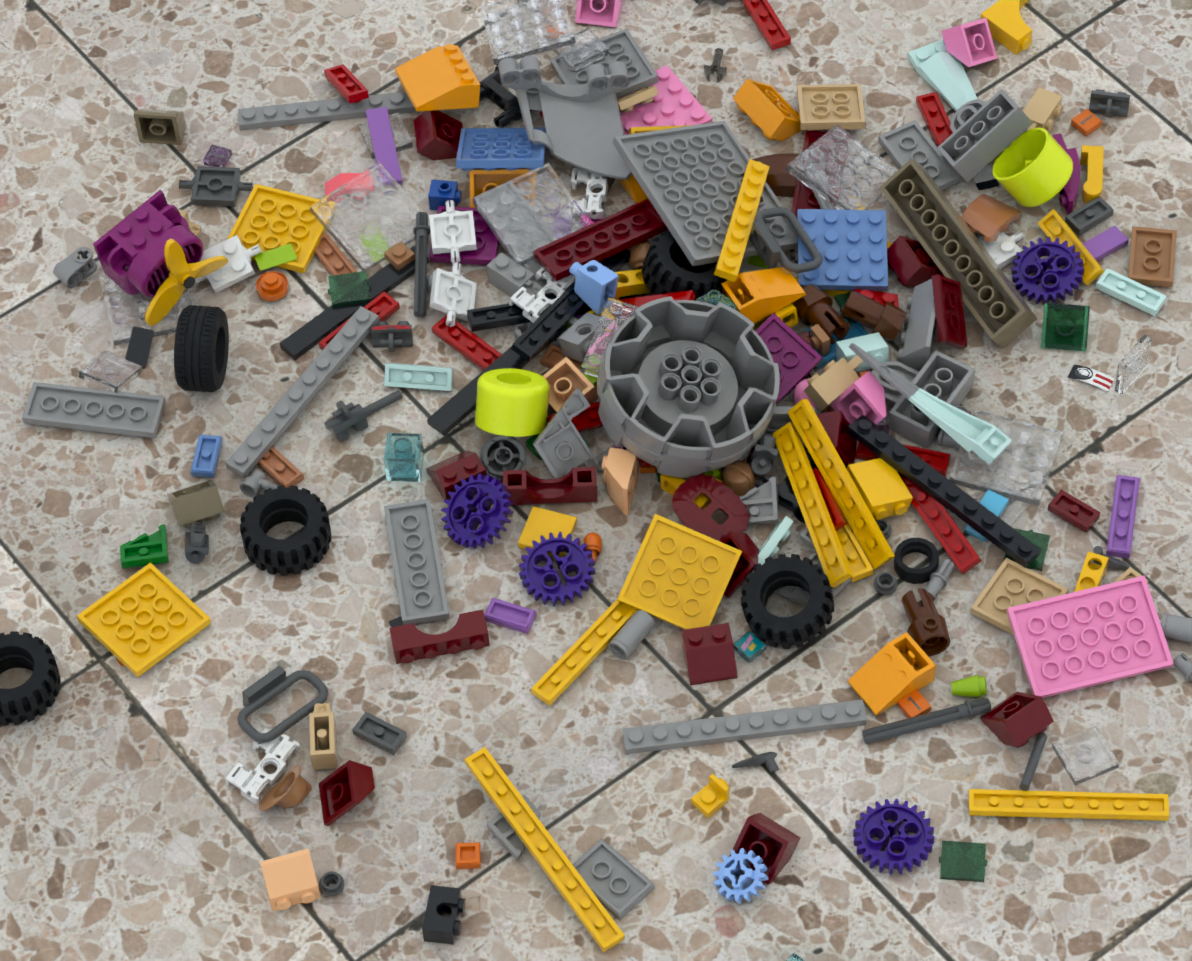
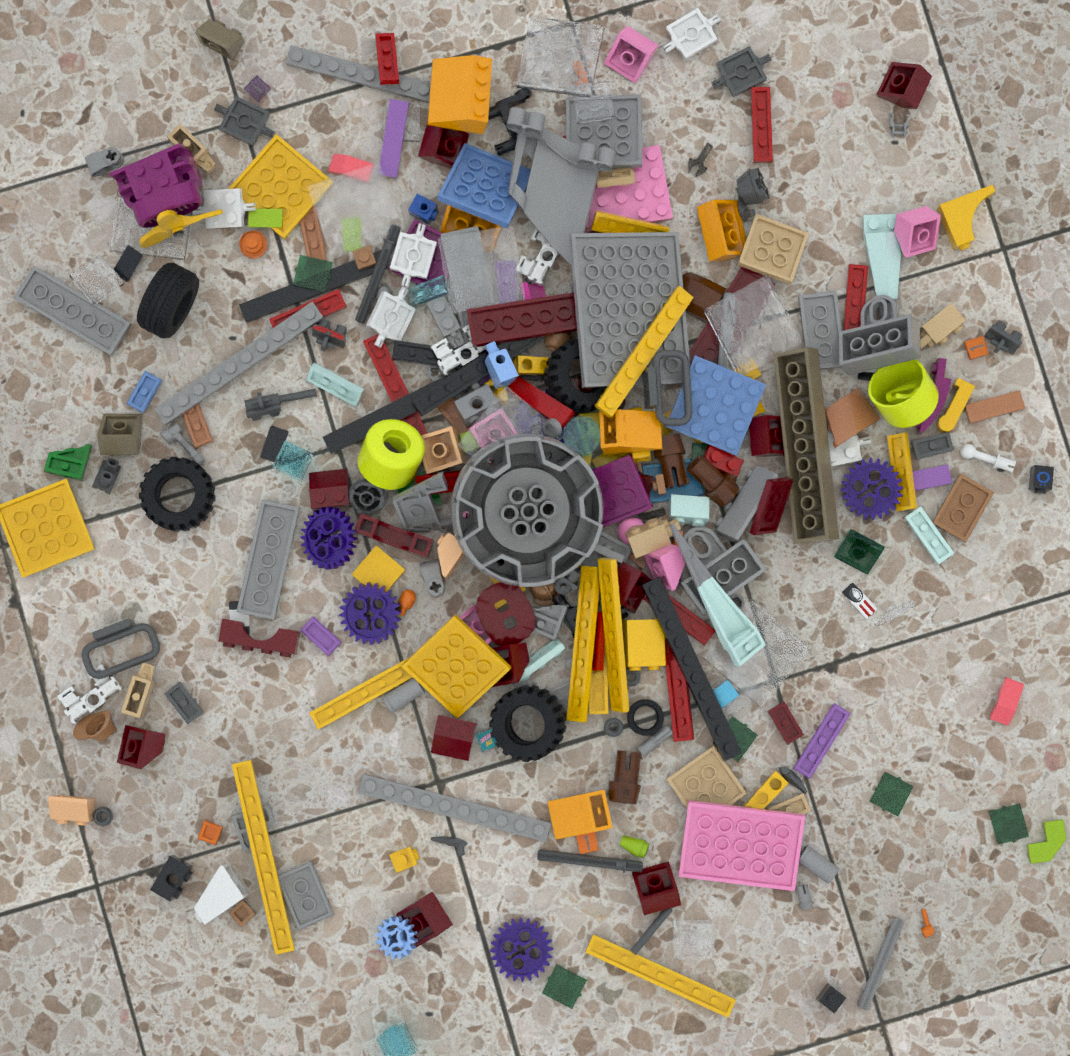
camera: 20 degrees right, 30 degrees up
(373, 457) = (273, 443): none -> black sticker
(483, 255) = (427, 291): none -> clear light blue plate
(511, 904) = (220, 895): none -> white slope
(544, 922) = (242, 913): none -> medium nougat plate
(611, 514) = (432, 575): none -> light grey piece
(781, 63) = (752, 187): none -> dark grey cone
(781, 89) = (742, 209): none -> dark grey bar
(1130, 207) = (968, 451): none -> white pin
(1134, 164) = (994, 407): none -> nougat tile

